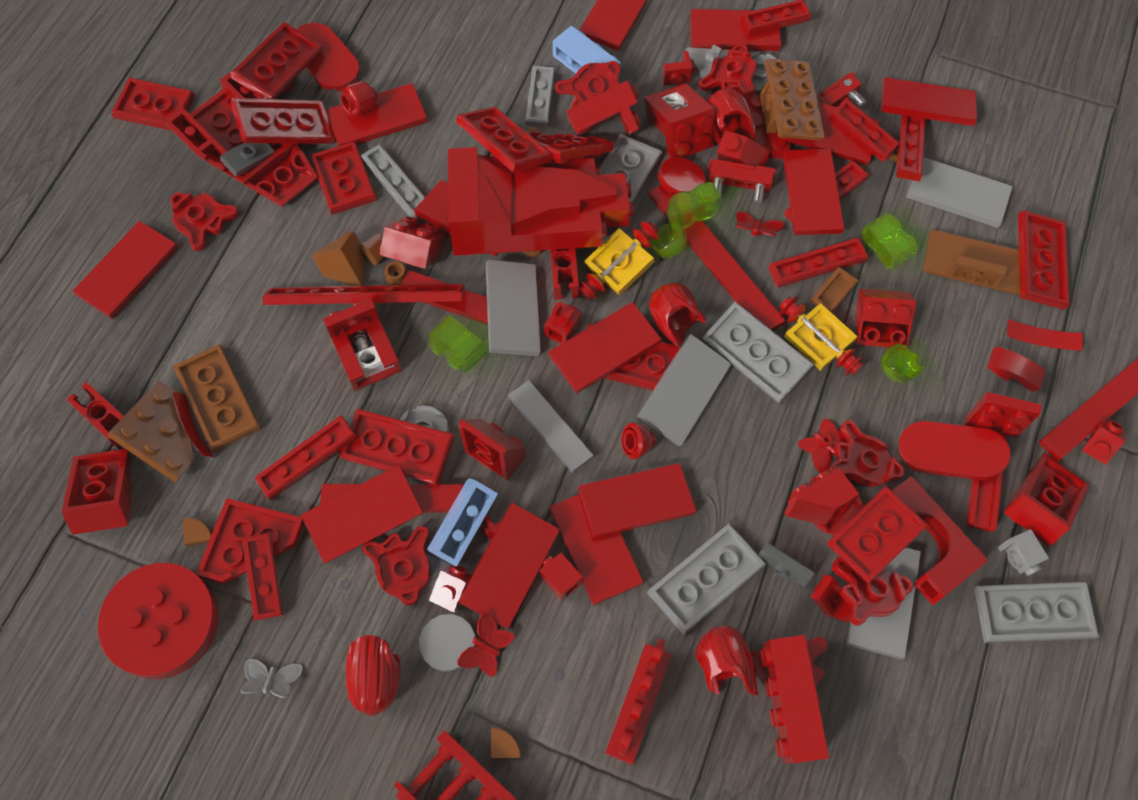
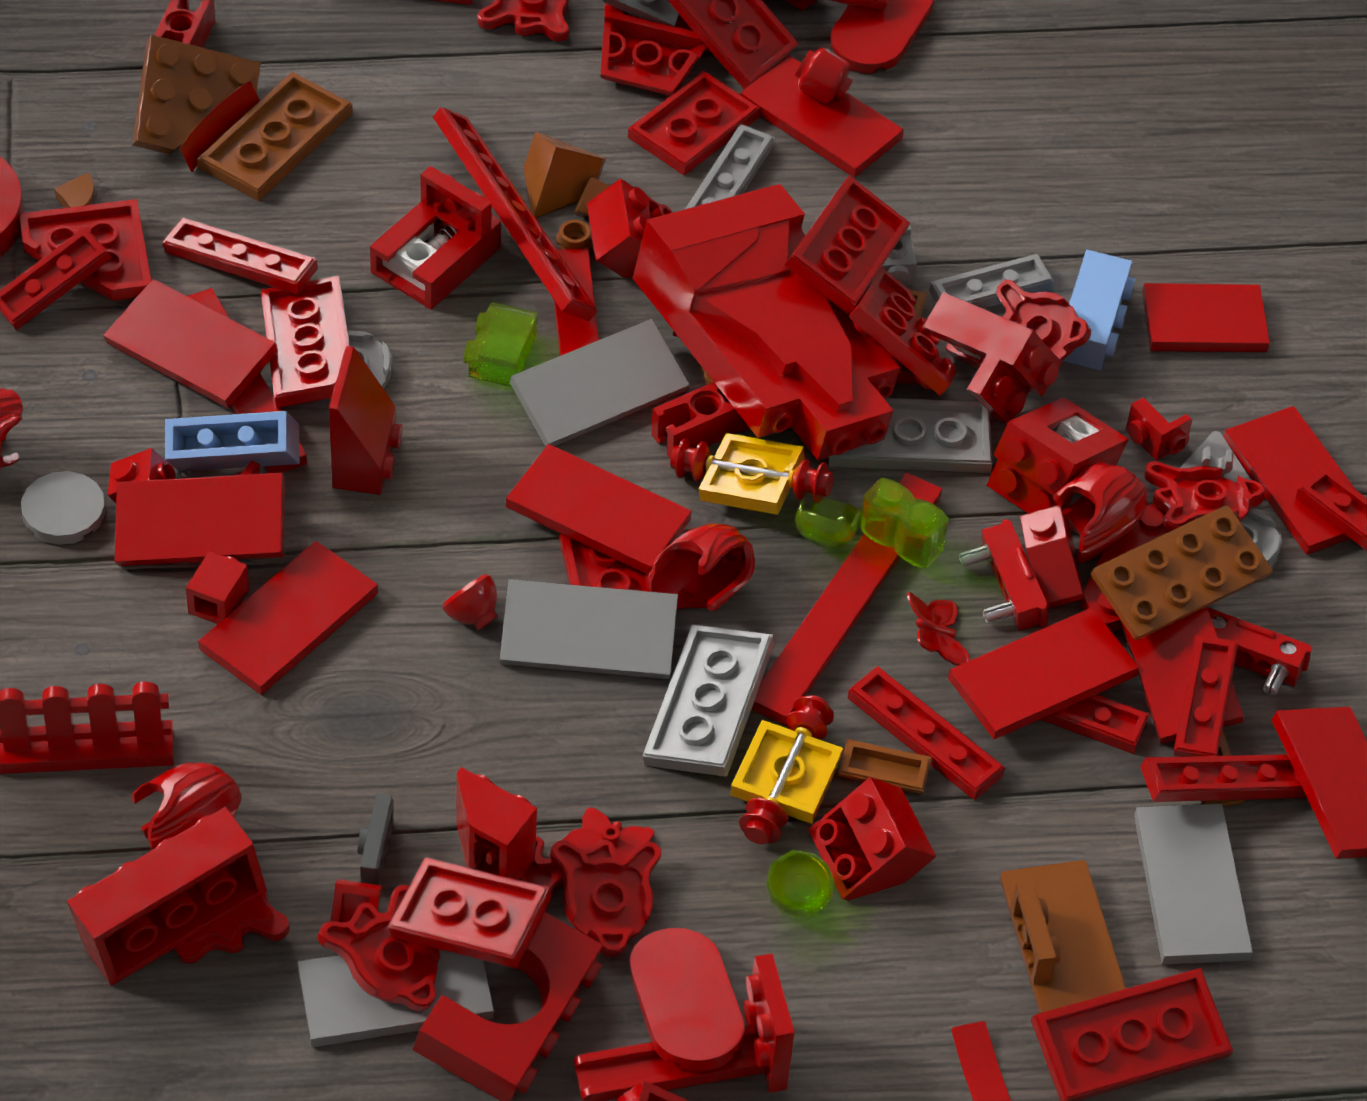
camera: 60 degrees right, 15 degrees down
(98, 492) = (75, 77): red slope -> none
(401, 565) = (137, 416): red tile -> none
(487, 648) = (77, 549): red piece -> none
(551, 426) = (440, 501): light grey tile -> none
(562, 322) = (612, 444): red brick -> none
(636, 500) = (380, 634): red tile -> none
(680, 175) = (963, 496): red tile -> none
(706, 578) = (308, 763): light grey tile -> none
(889, 241) = (1022, 807): clear neon green brick -> none
(1013, 365) = (893, 1051): red slope -> none

